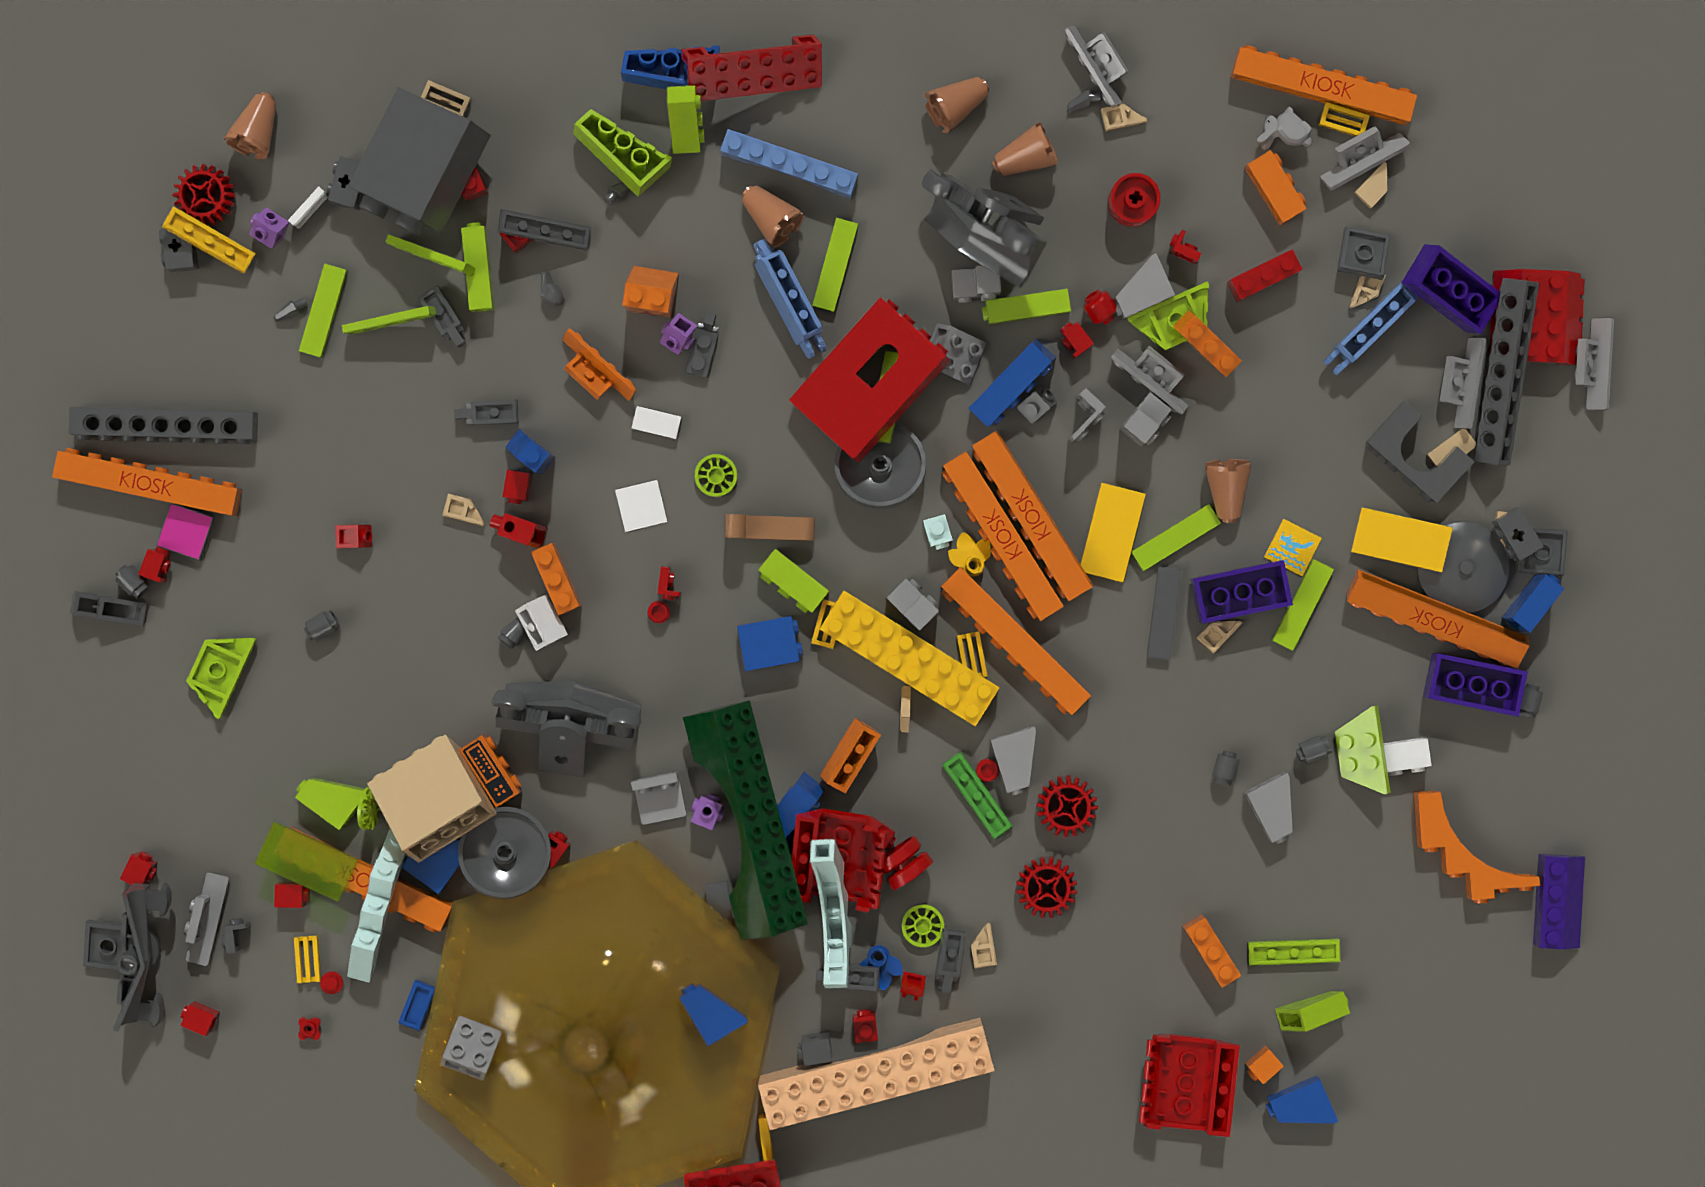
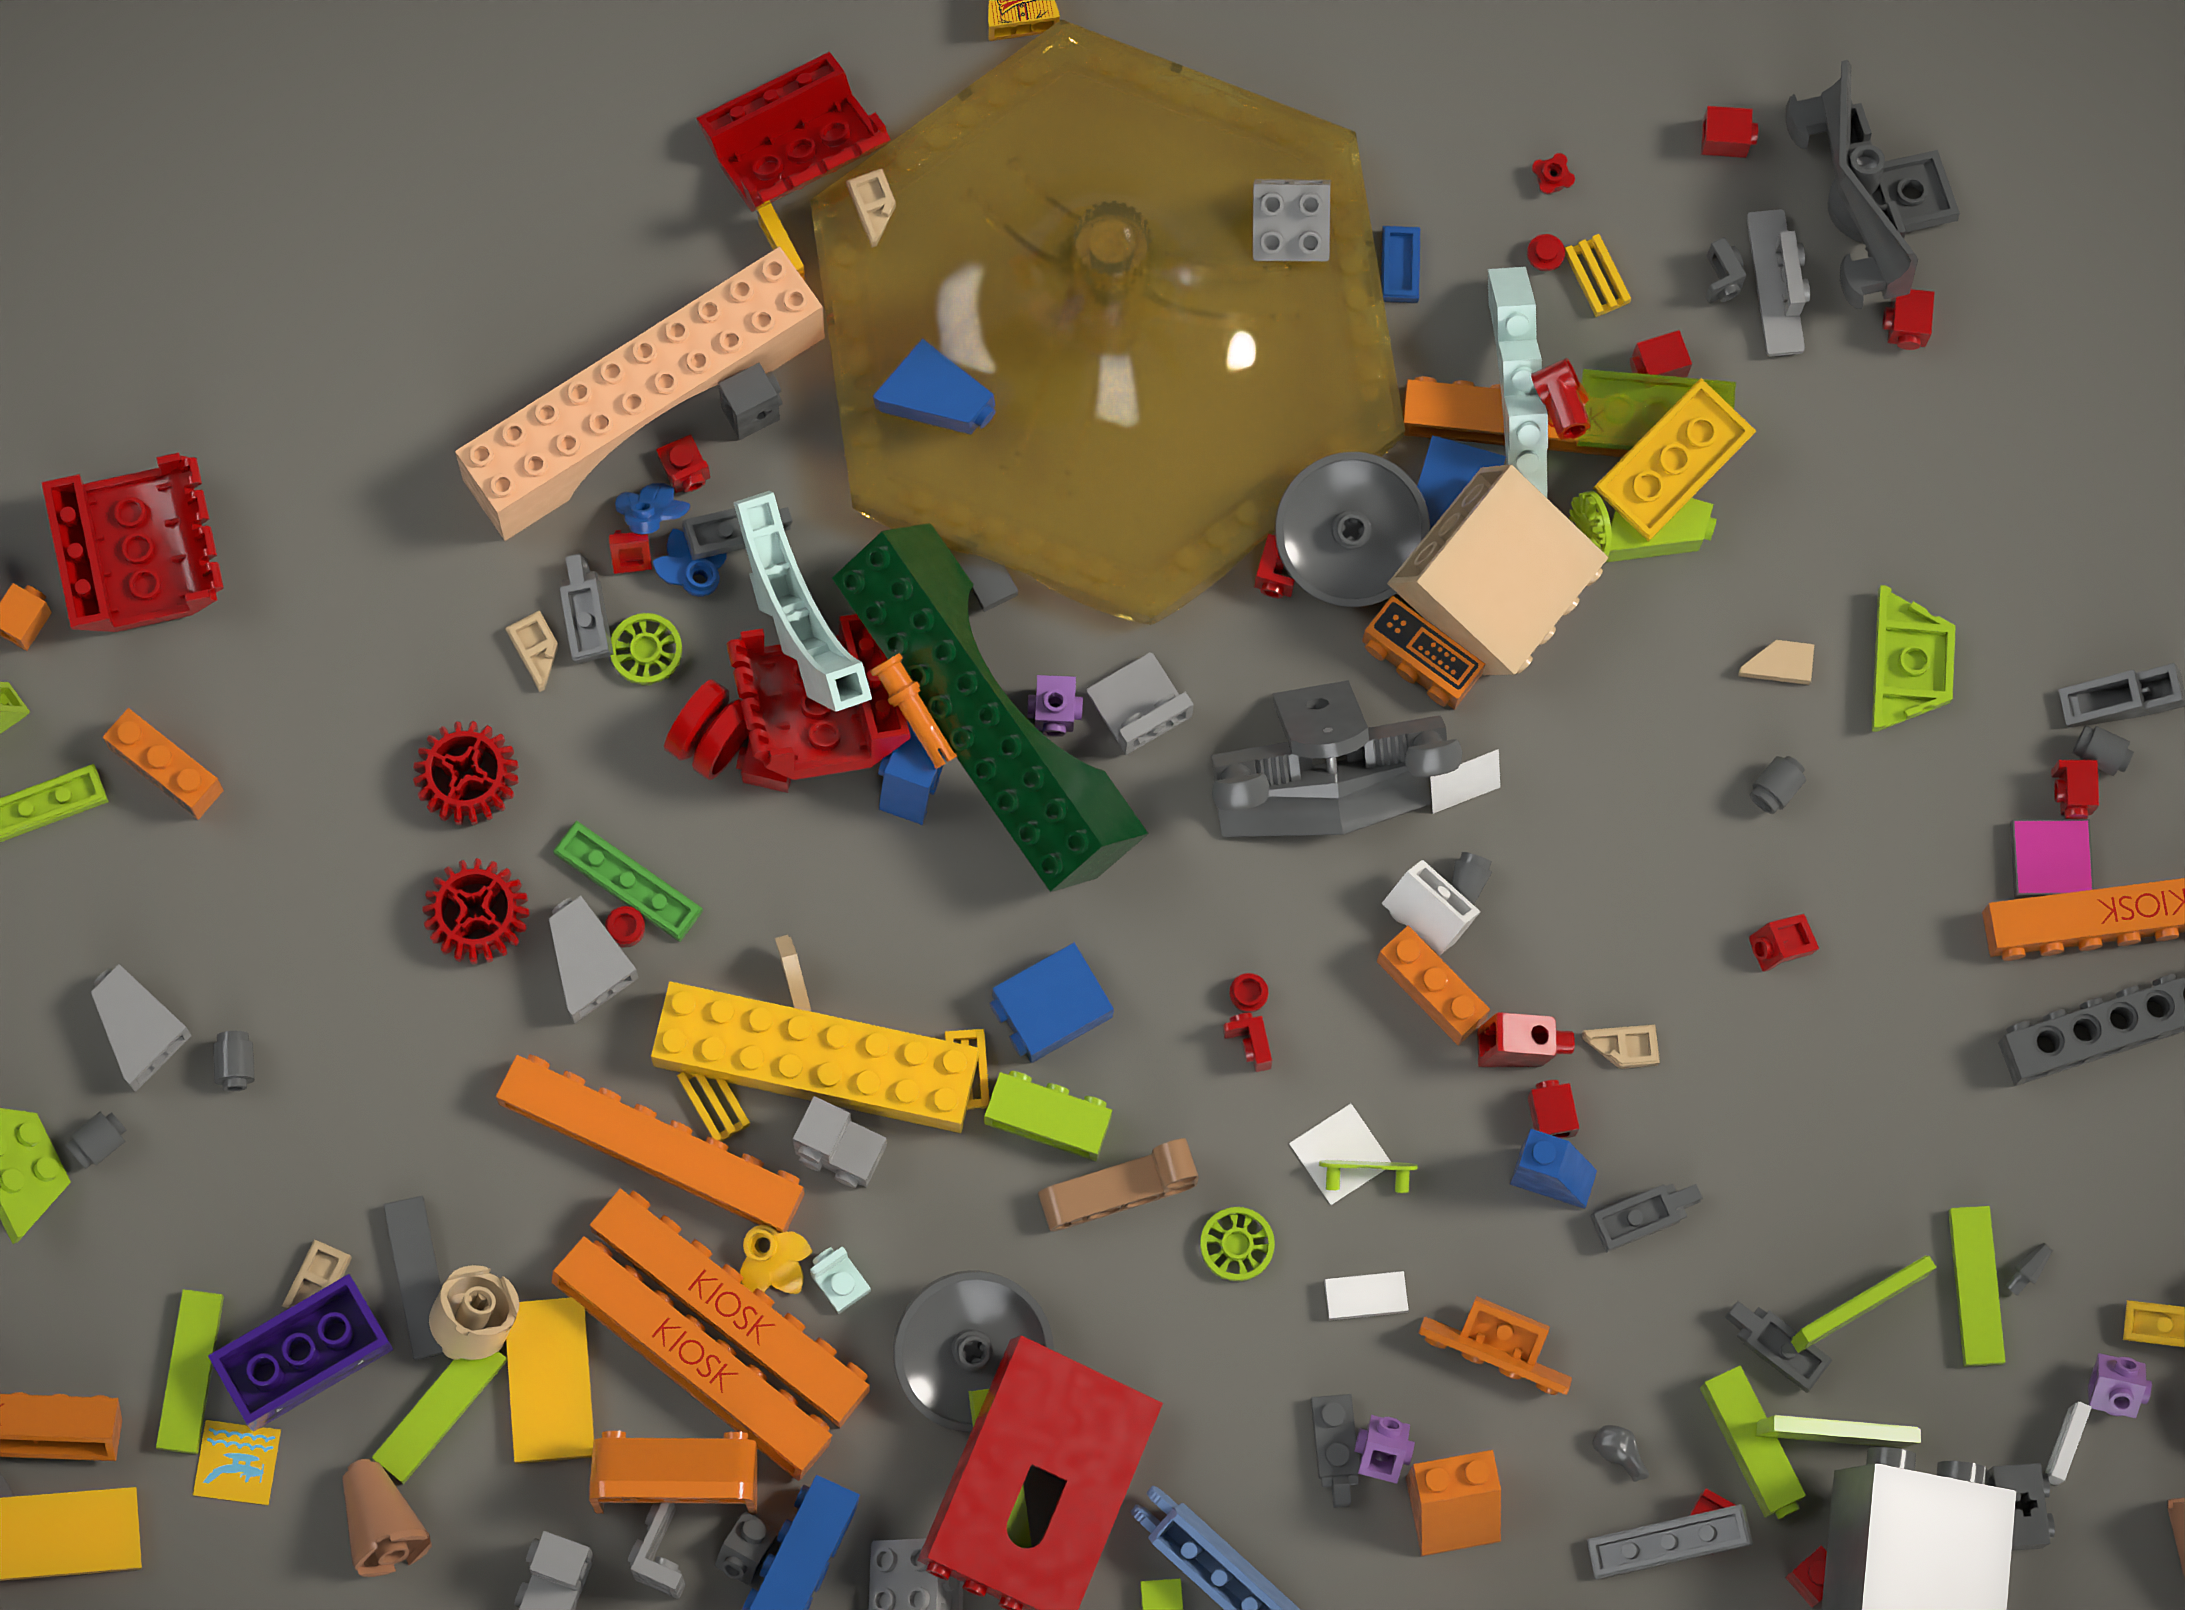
camera: 155 degrees right, 15 degrees down
(291, 695) = (1782, 662): none -> tan tile
(307, 829) = (1674, 459): none -> yellow tile
(357, 886) = (1564, 398): none -> red piece
(493, 686) = (1466, 782): none -> white sticker
(611, 484) = (1334, 1167): none -> lime piece
(706, 1141) = (872, 202): none -> tan tile
(791, 839) = (904, 693): none -> orange pin
(850, 755) = (856, 869): orange brick -> none
(893, 1006) = (653, 504): none -> blue plate
(1064, 451) = (674, 1470): none -> orange windscreen
(1144, 589) = (473, 1313): none -> tan brick

